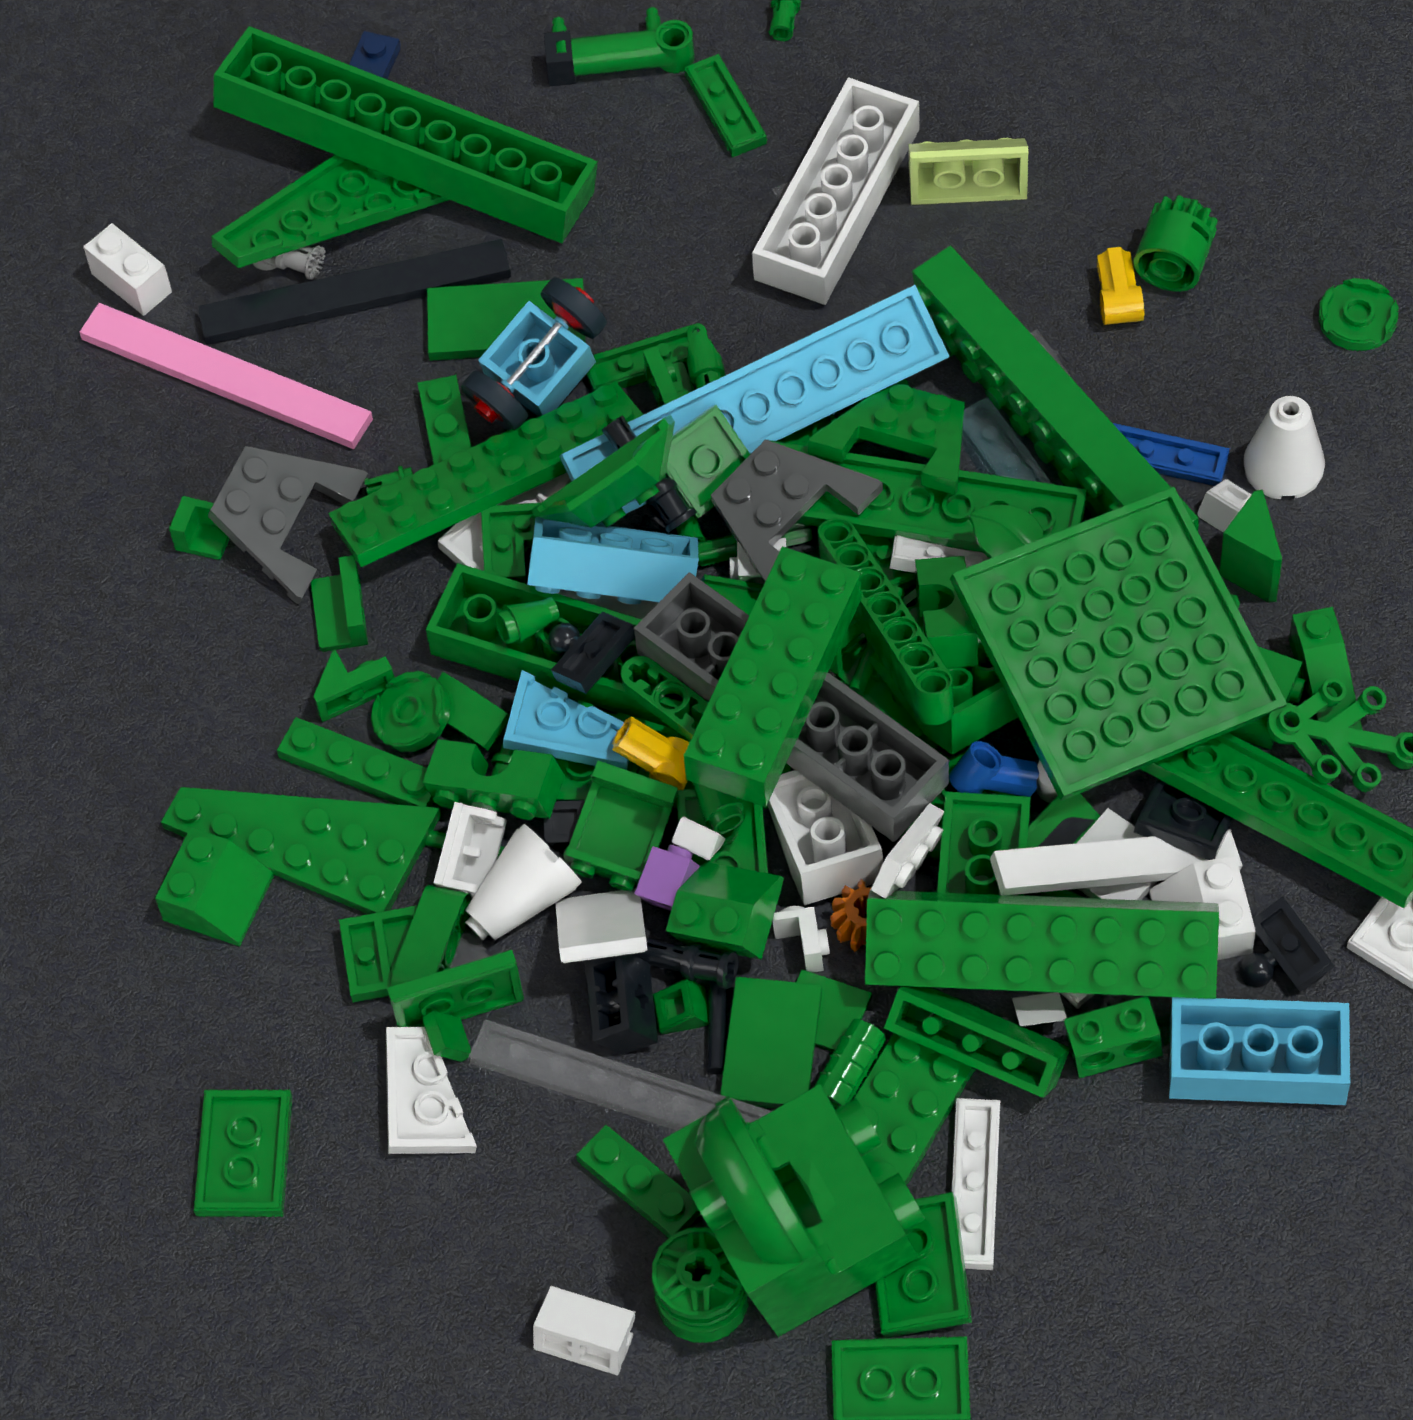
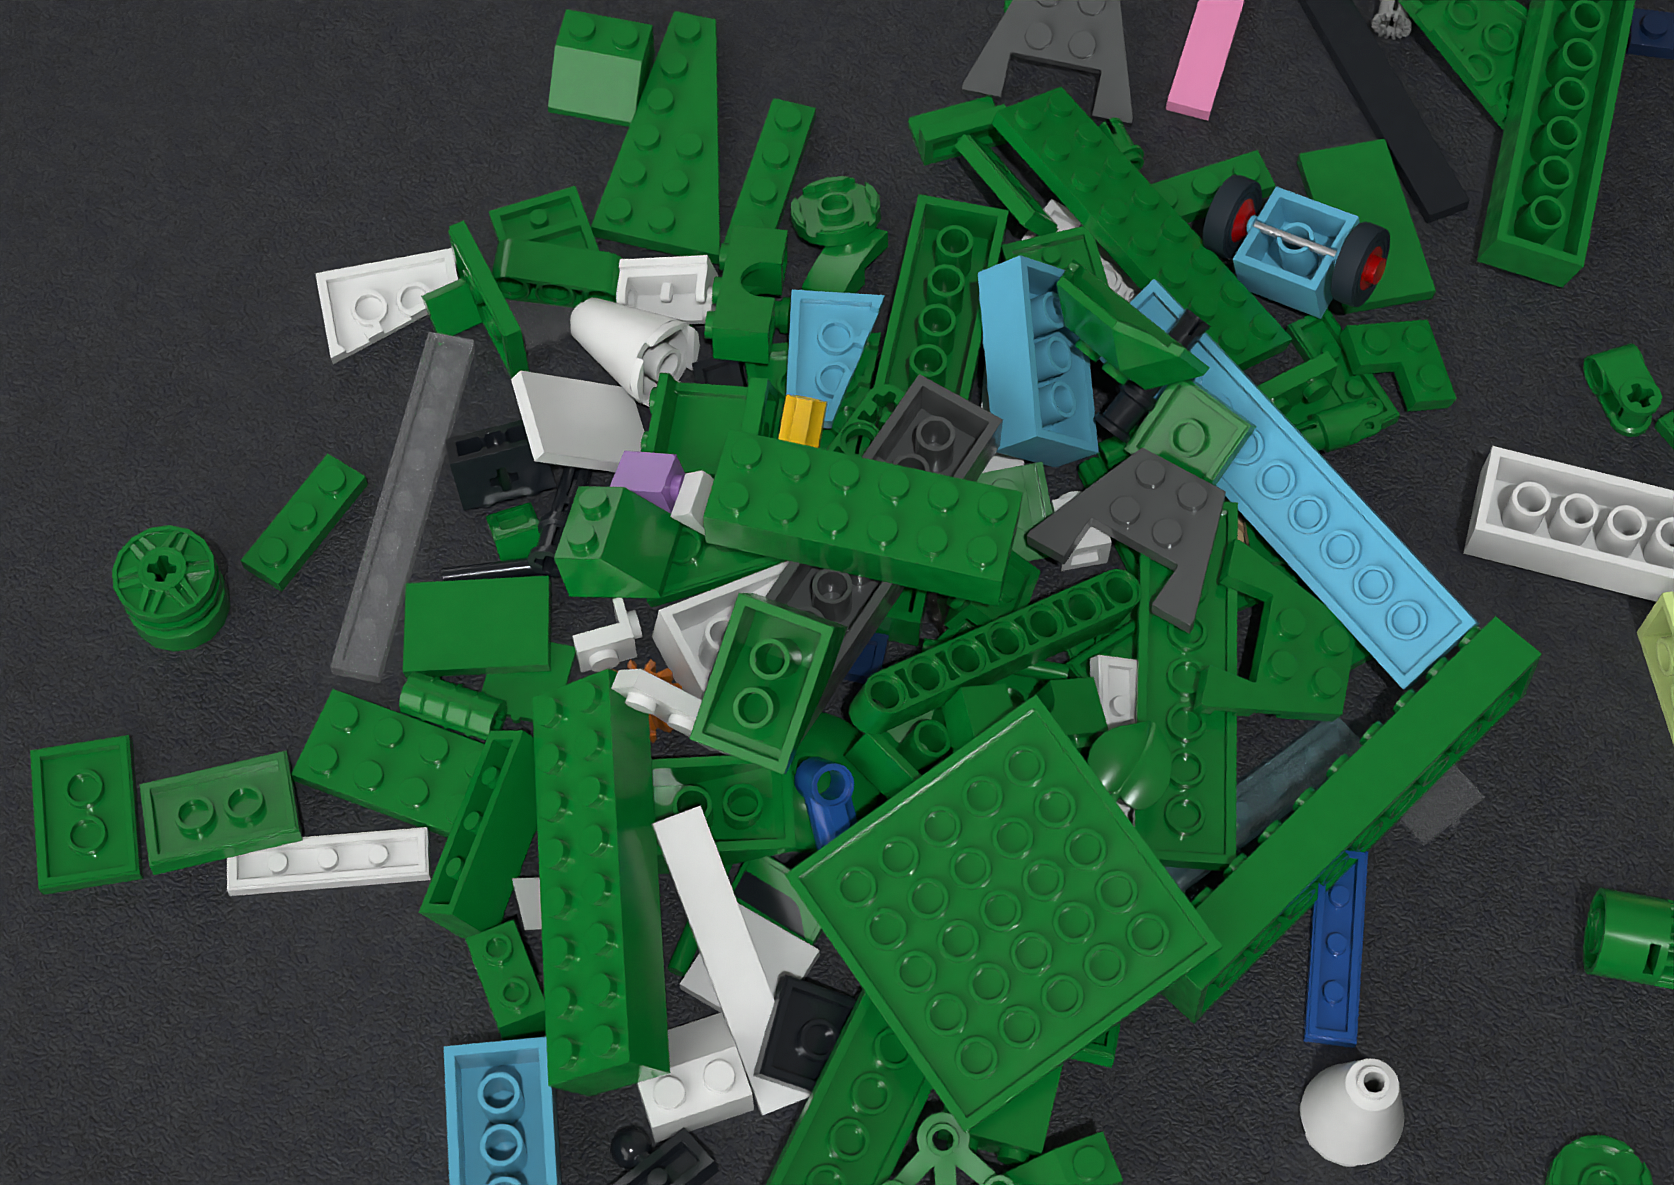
camera: 75 degrees right, 5 degrees up
(243, 1153) = (312, 154): green tile -> none
(344, 691) = (858, 146): green slope -> none
(422, 569) = (1006, 186): none -> green tile
(525, 619) = (935, 279): green cone -> none
(583, 1330) = (125, 489): white hinge -> none
(589, 654) = (907, 350): black plate -> none
(639, 306) = (1406, 350): none -> green plate
(697, 166) = (1623, 388): none -> green piece
(796, 1202) = (229, 636): green piece -> none
(910, 763) = (767, 681): none -> green slope
(1119, 296) = (1550, 886): yellow piece -> none
(1222, 504) = (1274, 1050): white slope -> none
(1251, 550) = (1201, 1075): green slope -> none

